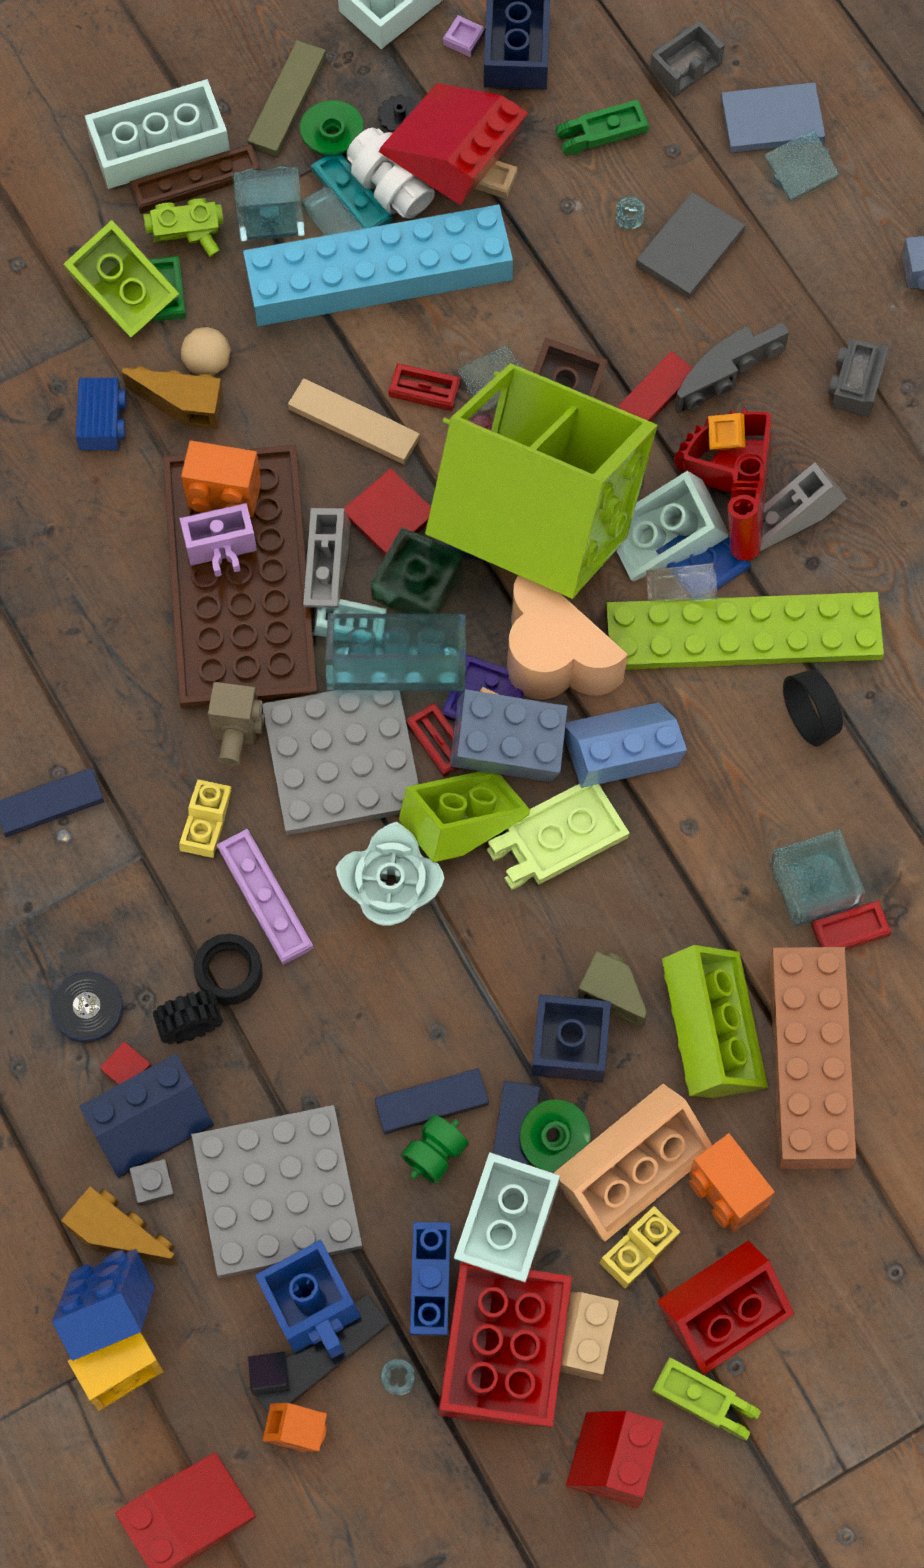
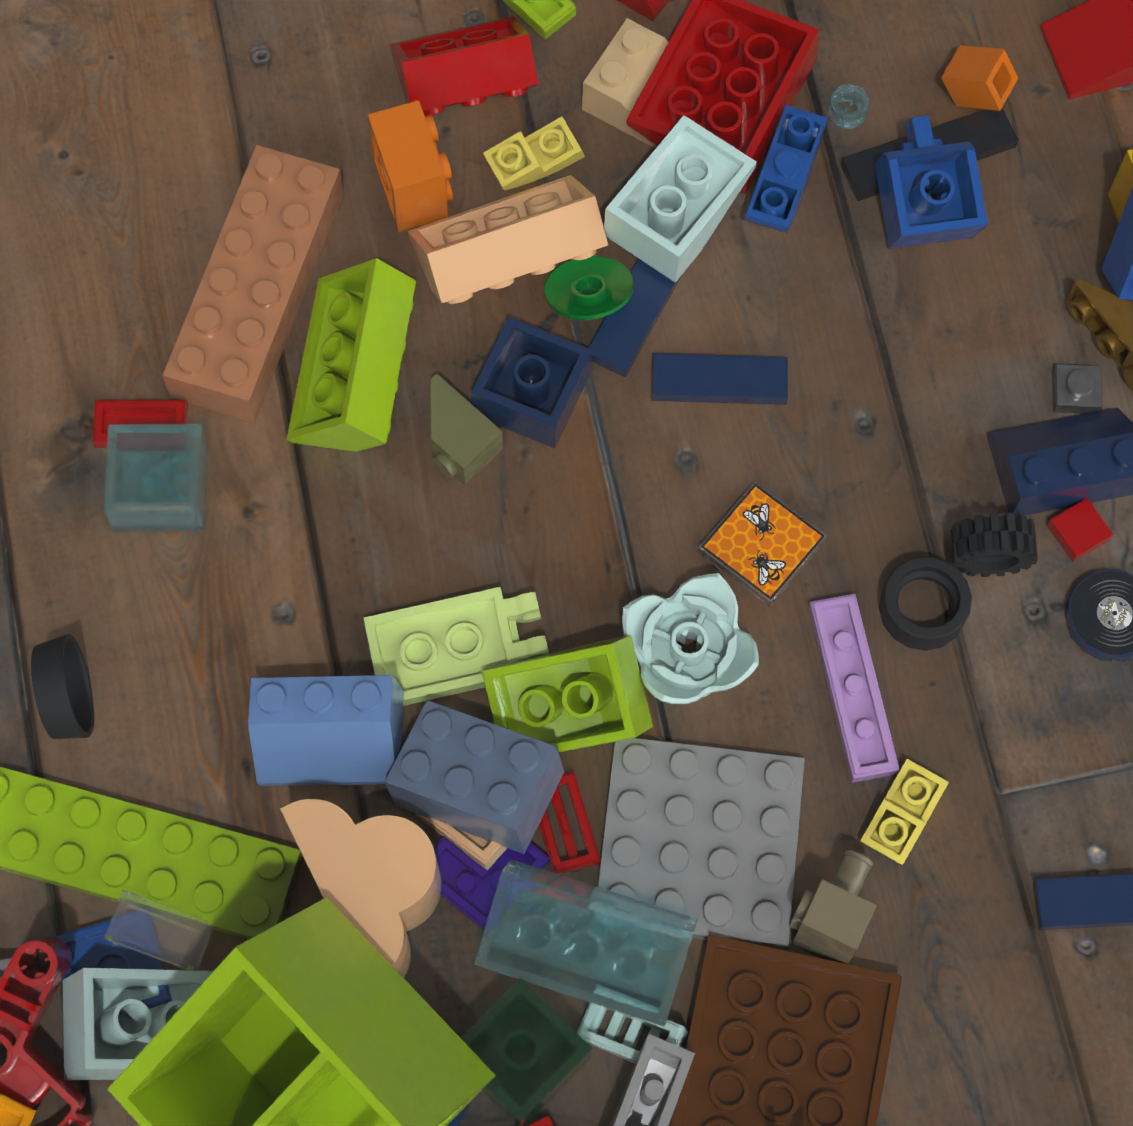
camera: 165 degrees left, 0 degrees up
(268, 1373) = (995, 137): black slope -> none
(275, 1190) = (932, 337): light grey plate -> none
(360, 980) = (762, 544): none -> tile
(430, 1155) = (728, 317): green wheel -> none

